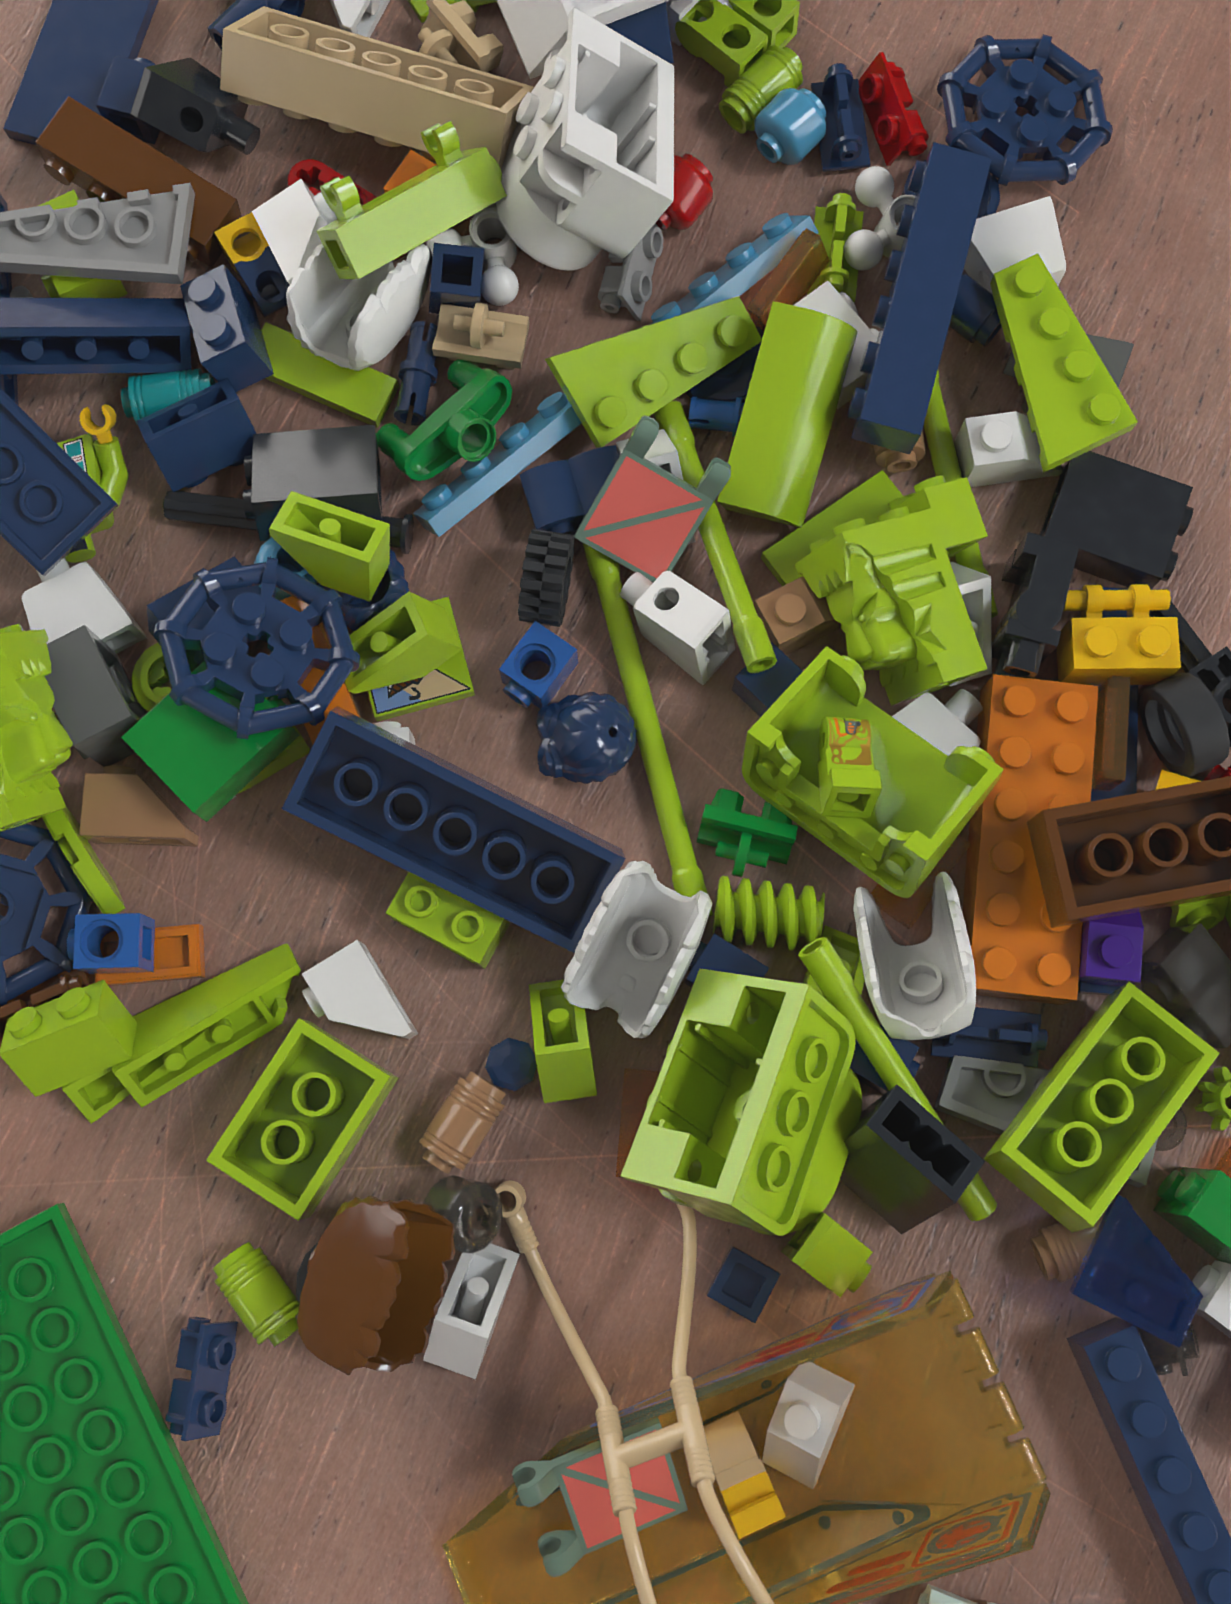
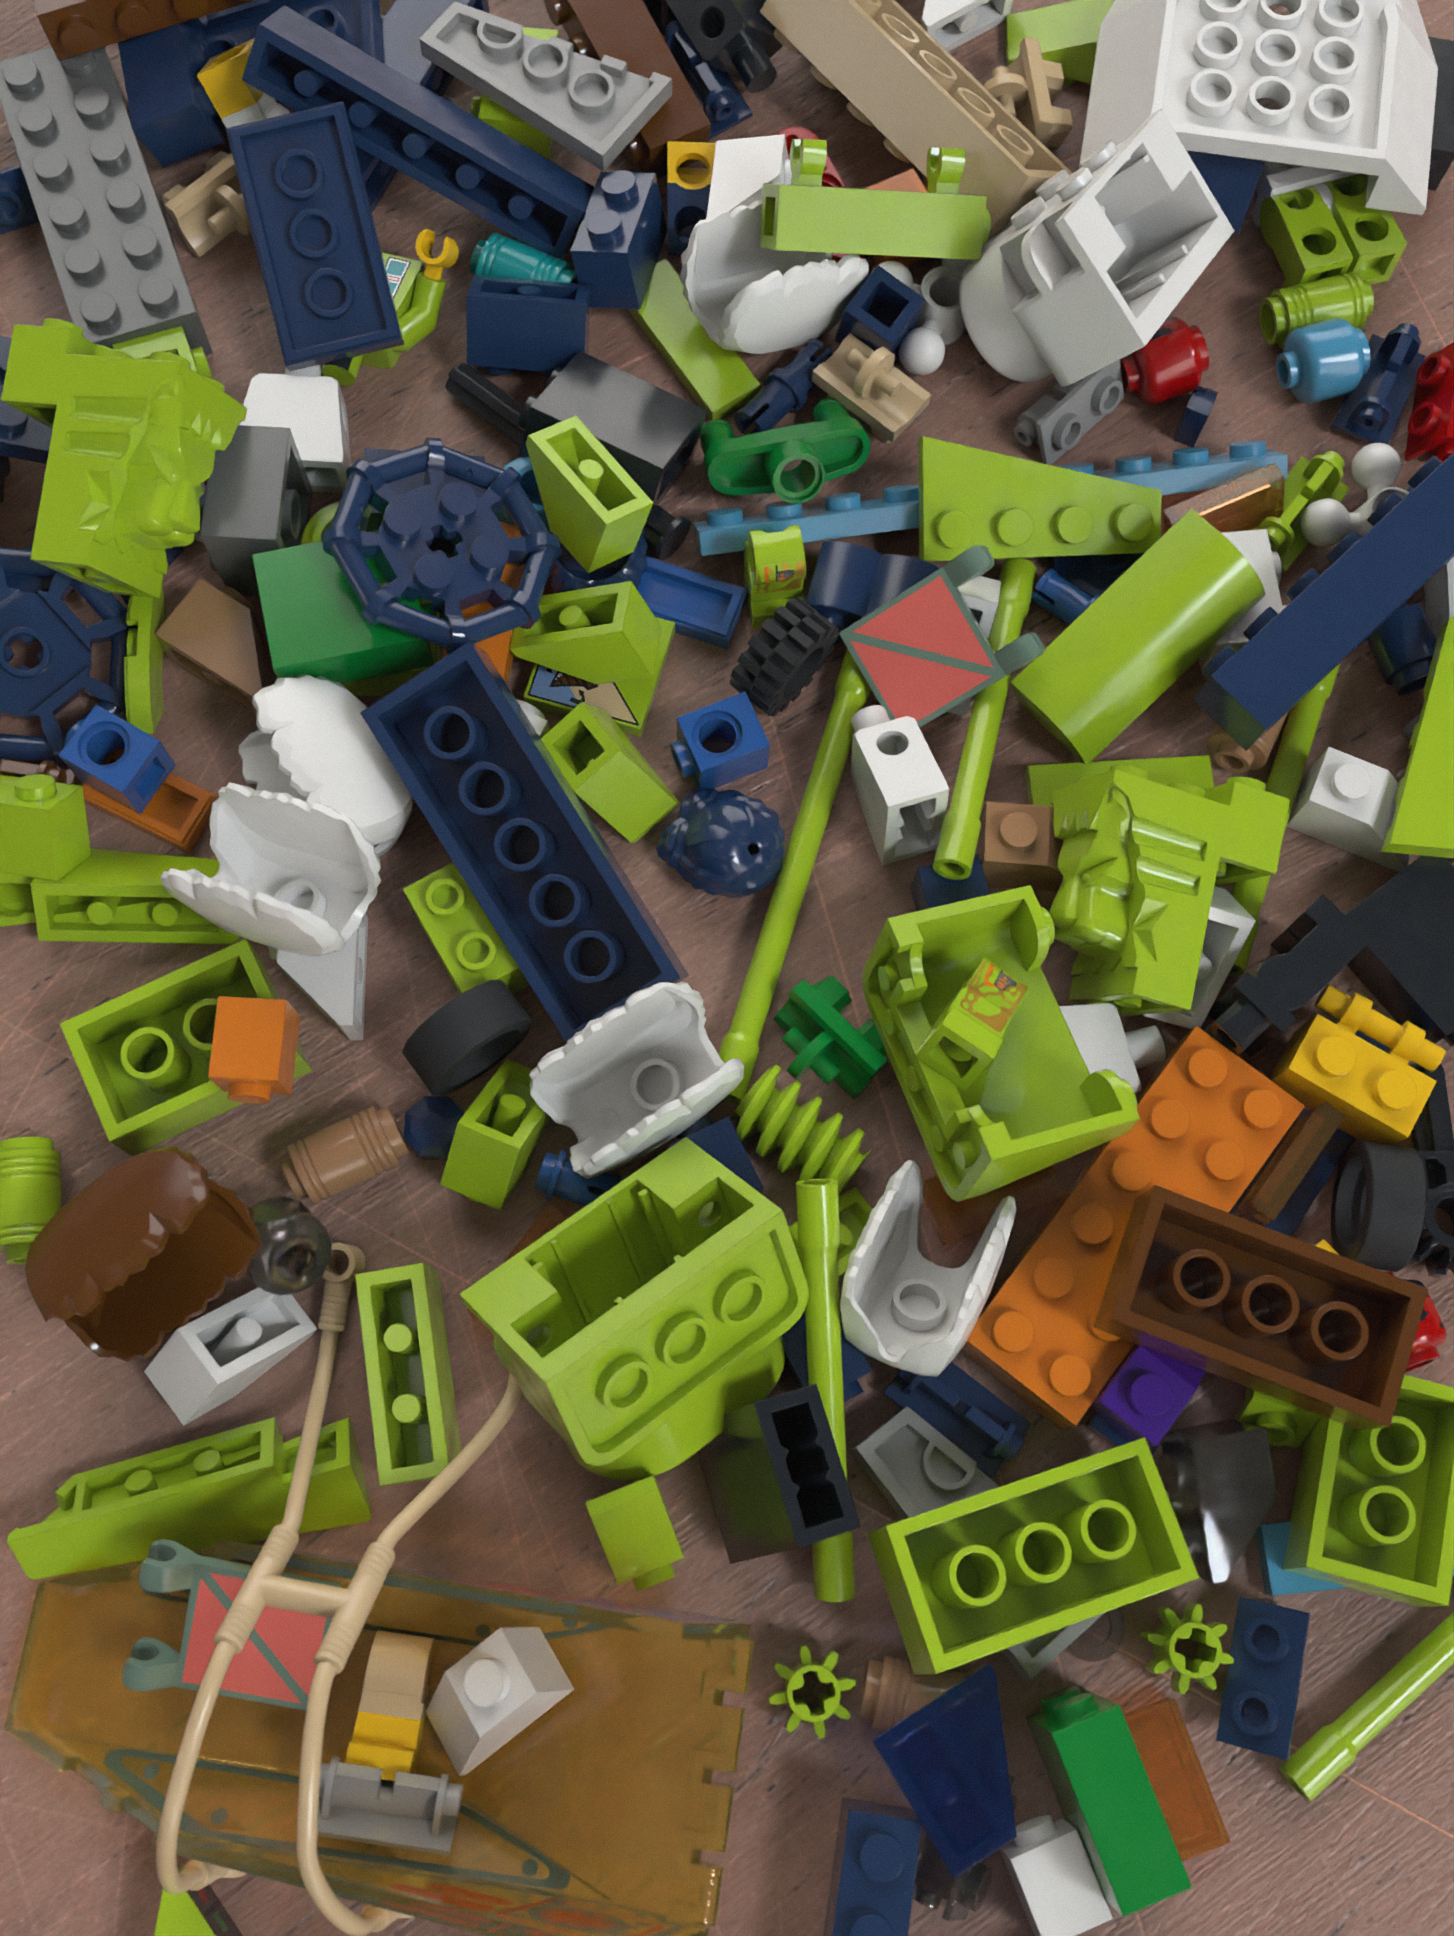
camera: 25 degrees right, 5 degrees down
(216, 166) = (711, 86): none -> dark blue hinge
(272, 865) = (325, 754): none -> white animal
(299, 958) = (285, 873): none -> white animal
(361, 1094) = (254, 1048): none -> orange brick
(450, 572) = (695, 602): none -> blue tile
(474, 736) = (609, 771): none -> lime slope
(497, 989) = (467, 1037): none -> black tyre
(500, 520) = (773, 571): none -> lime leg
(511, 1423) = (194, 1495): none -> lime wedge
(609, 1248) = (408, 1373): none -> lime brick
(622, 1047) = (559, 1180): none -> blue pin
(723, 219) = (1195, 415): none -> dark blue tile
(743, 1284) = (528, 1509): dark blue tile -> none
(796, 1538) = (401, 1813): none -> light grey hinge
(992, 1286) = (828, 1700): none -> lime gear

